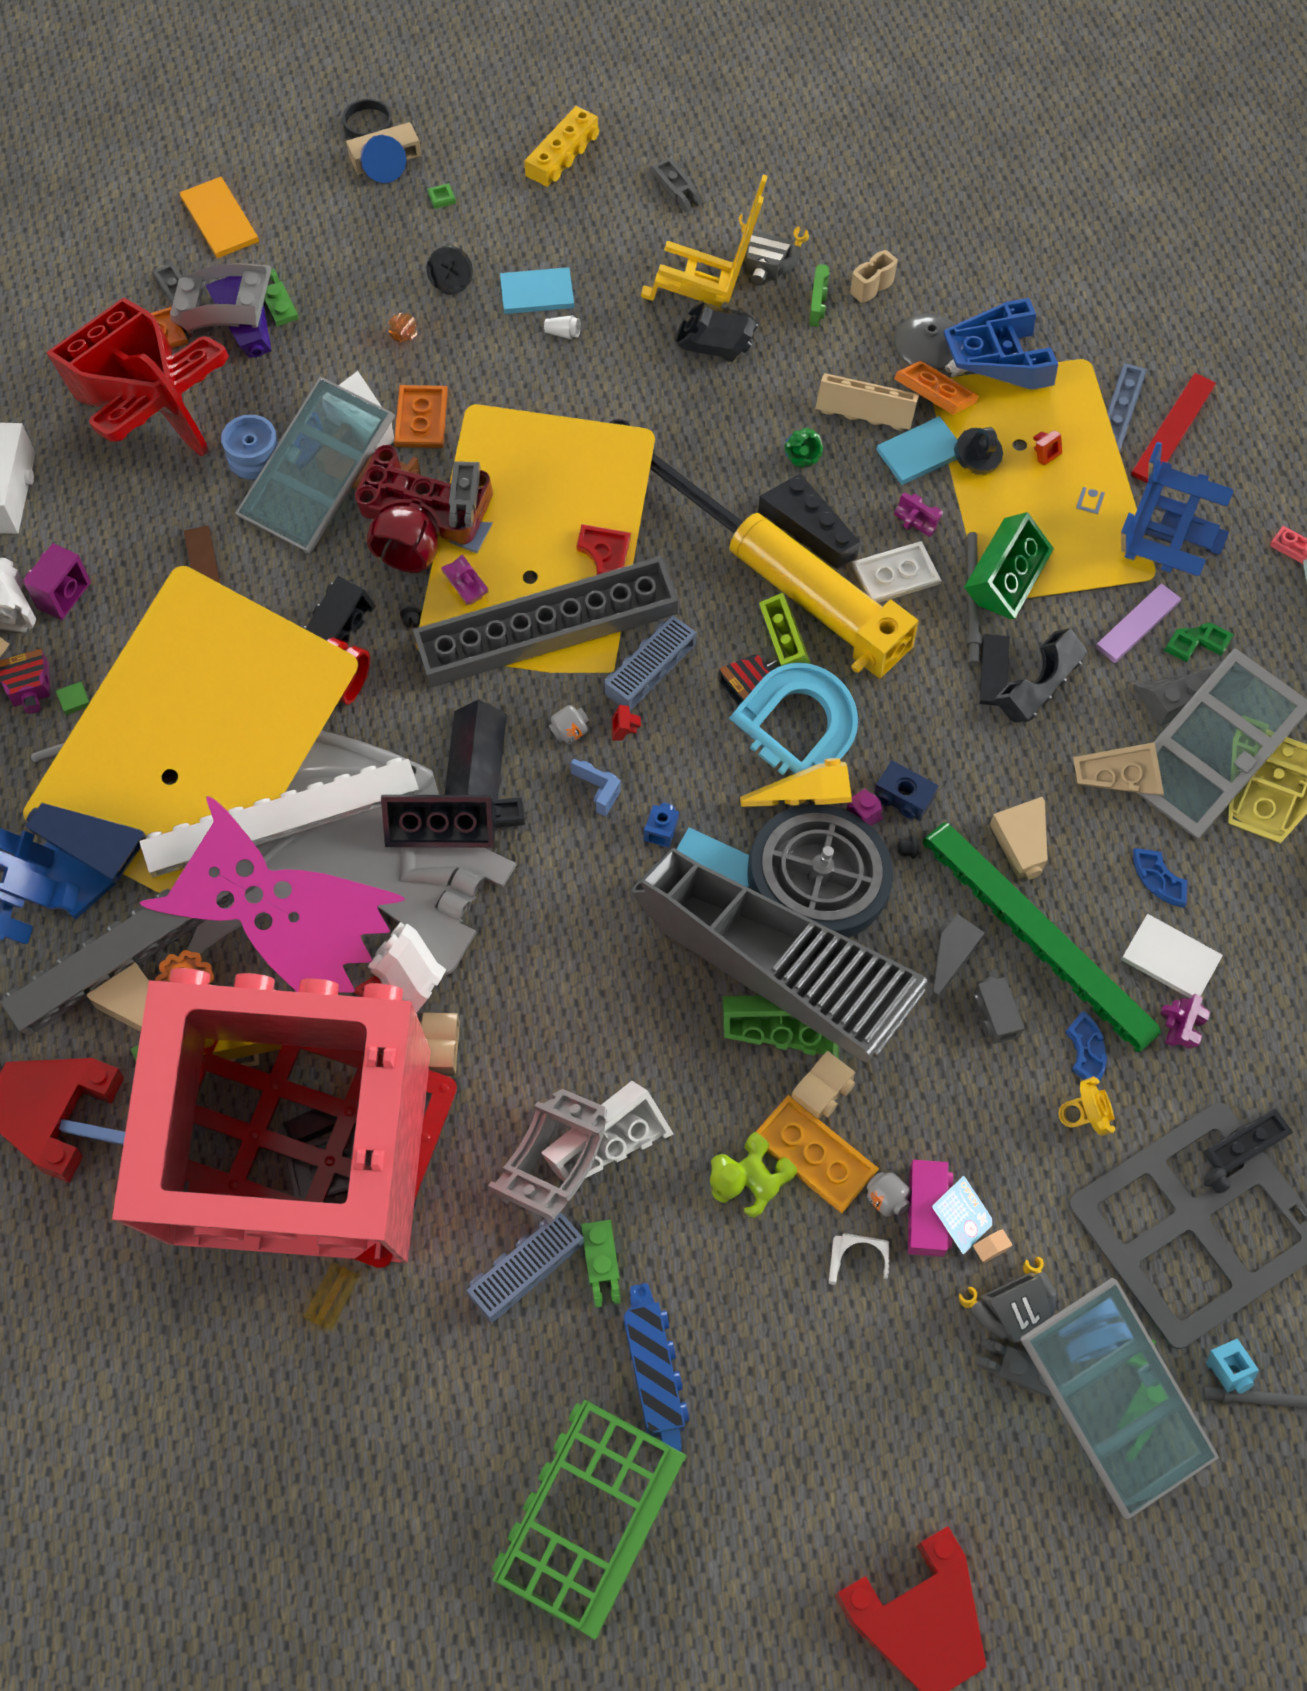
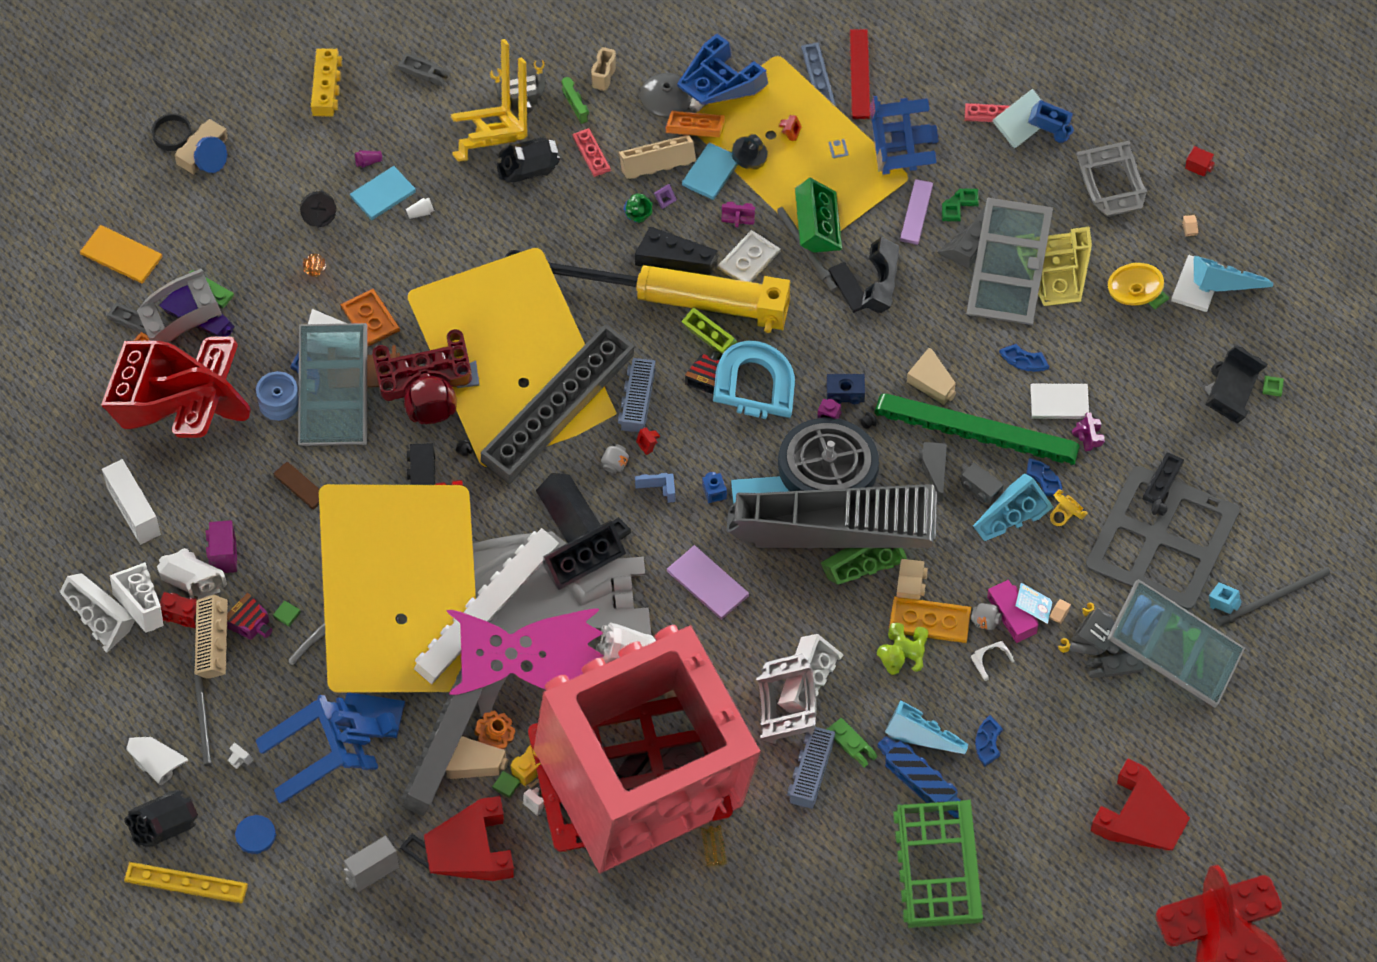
camera: 30 degrees left, 5 degrees down
(90, 840) = (383, 680): dark blue slope -> none
(92, 1132) = (528, 832): medium blue tile -> none
(441, 196) = (266, 160): bright green tile -> none
(464, 491) = (453, 348): dark grey hinge -> none
(465, 580) = (488, 405): magenta hips -> none
(547, 245) = (365, 158): none -> magenta cone
(572, 940) = (707, 582): none -> lavender tile
(604, 546) = (560, 338): red tile -> none
(692, 1296) = (911, 728): none -> medium azure wedge
(778, 1369) = (986, 741): none -> blue tile
(797, 362) = (594, 159): none -> coral tile
(821, 783) = (795, 409): yellow wedge -> none
(846, 446) = (666, 191): none -> medium lavender slope
(1026, 1064) = (1016, 504): none -> medium azure wedge
(1122, 769) = (964, 306): tan wing -> none

